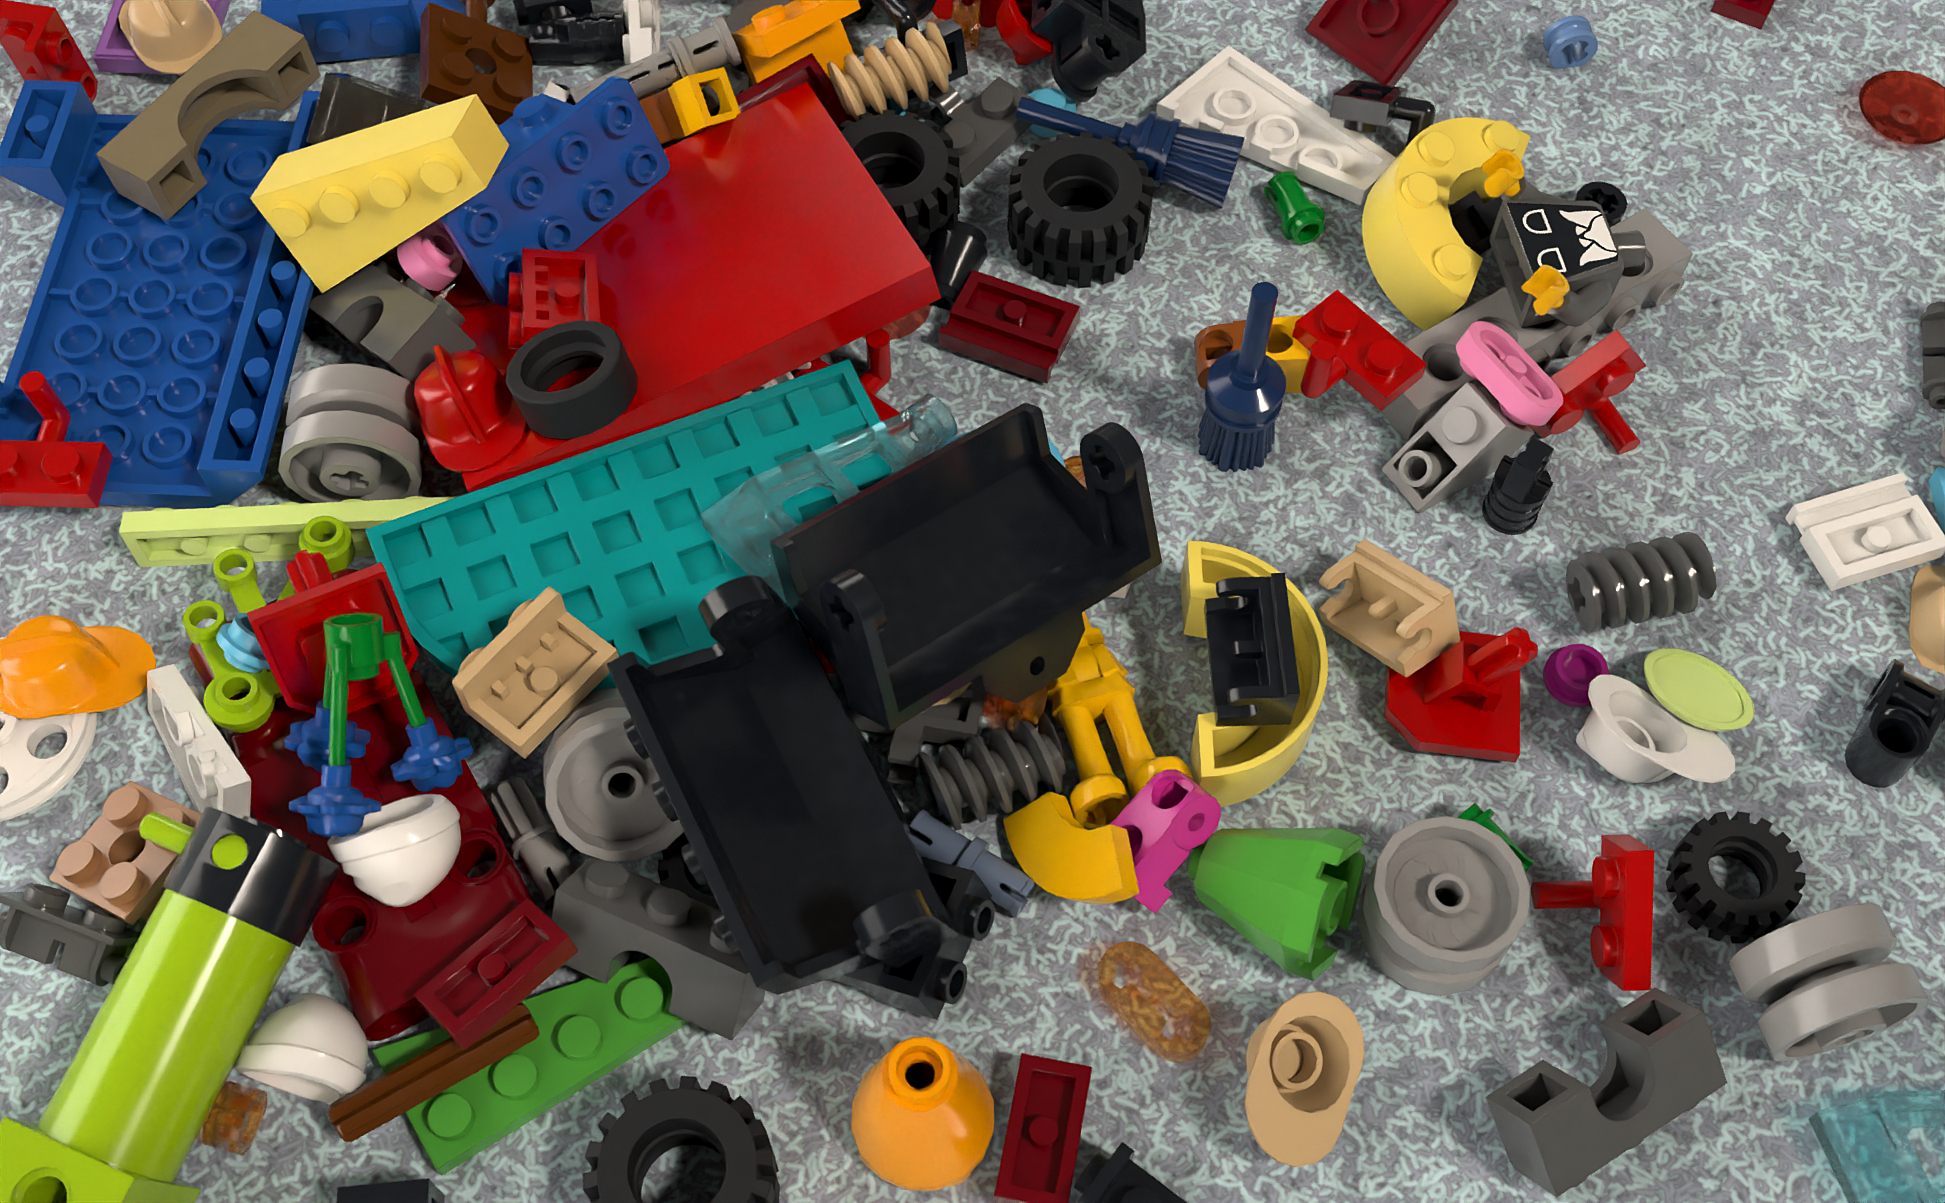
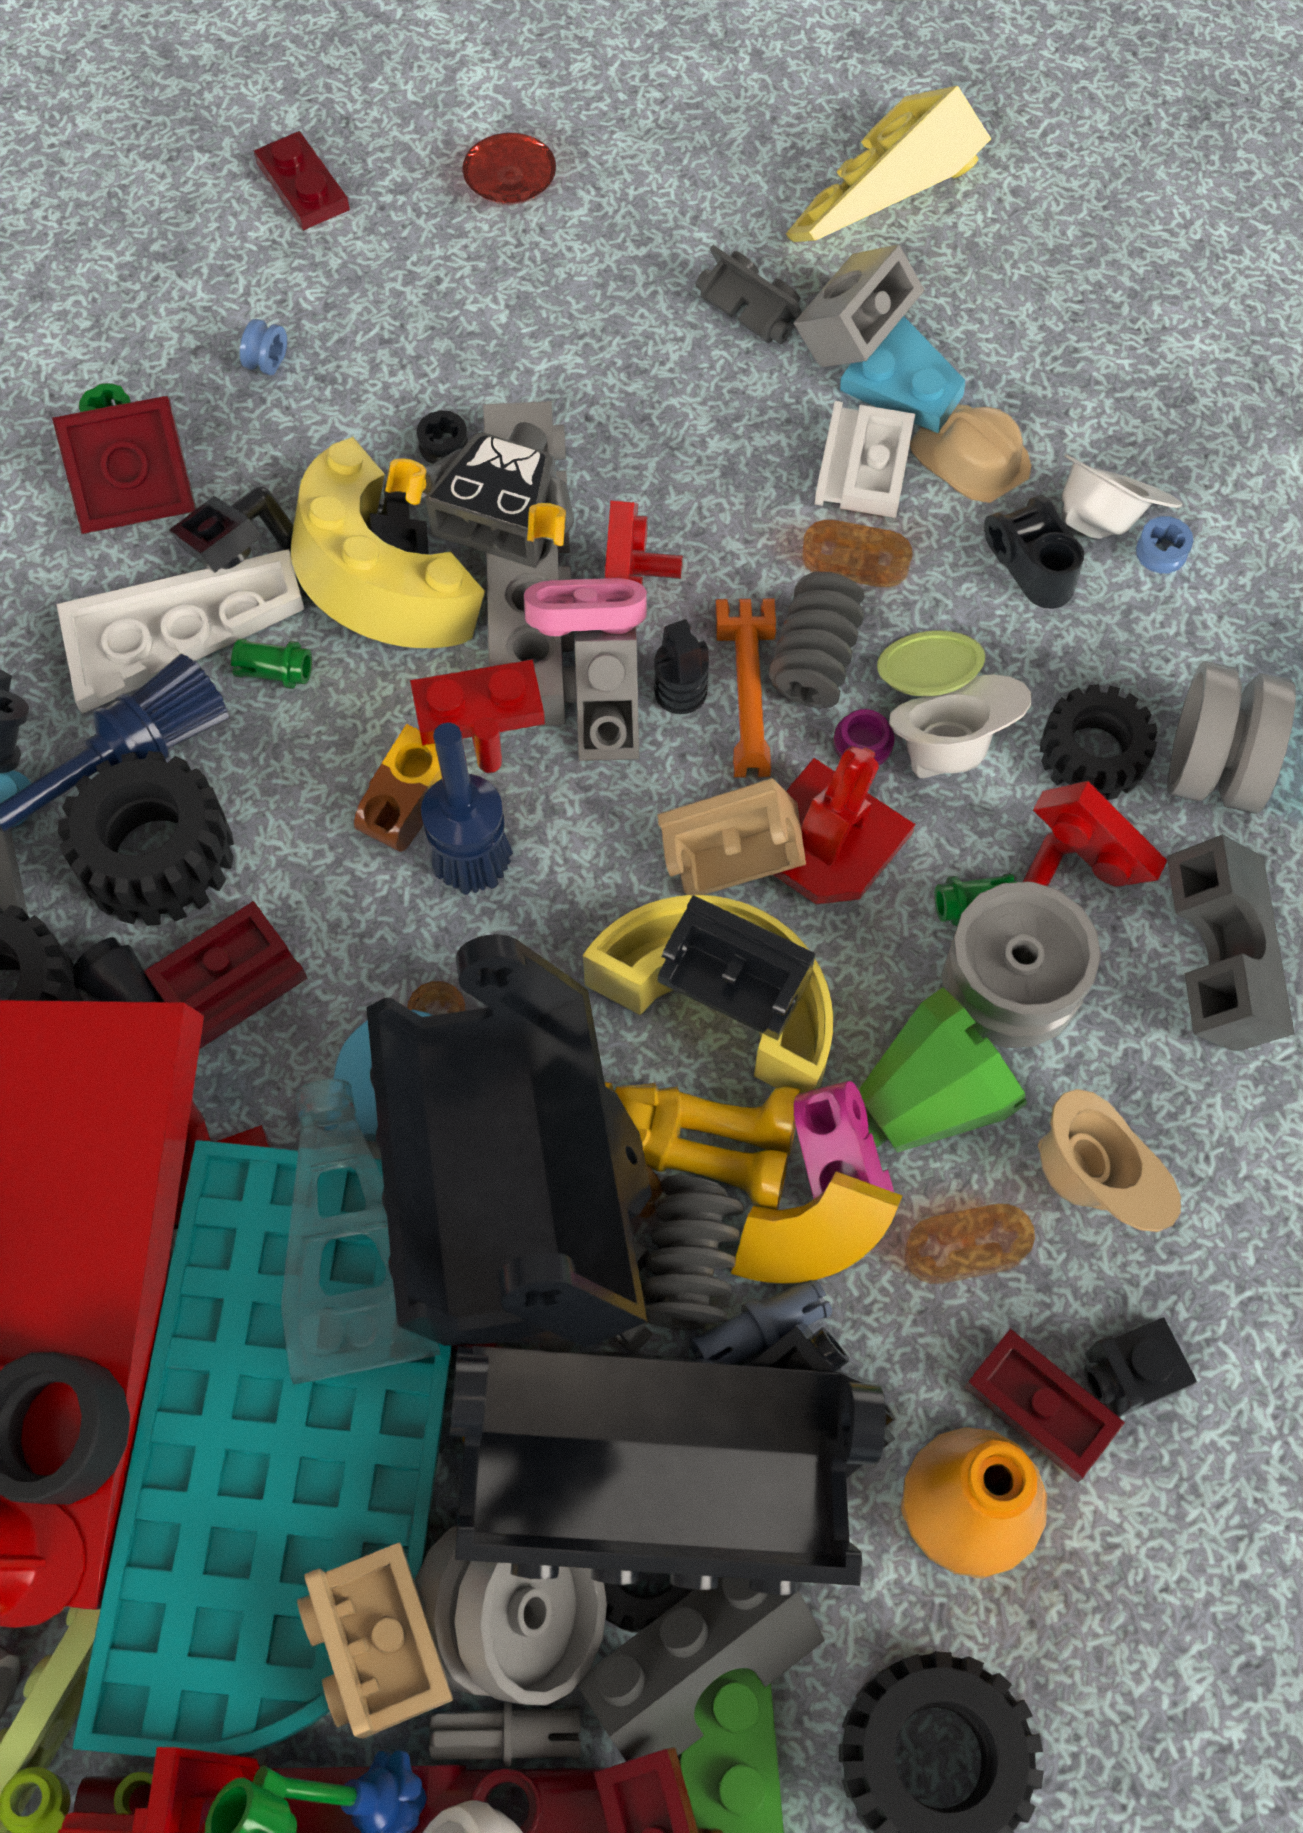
camera: 60 degrees left, 5 degrees up
(1603, 527) = (746, 631): none -> orange hinge
(1768, 573) = (857, 552): none -> clear orange beam

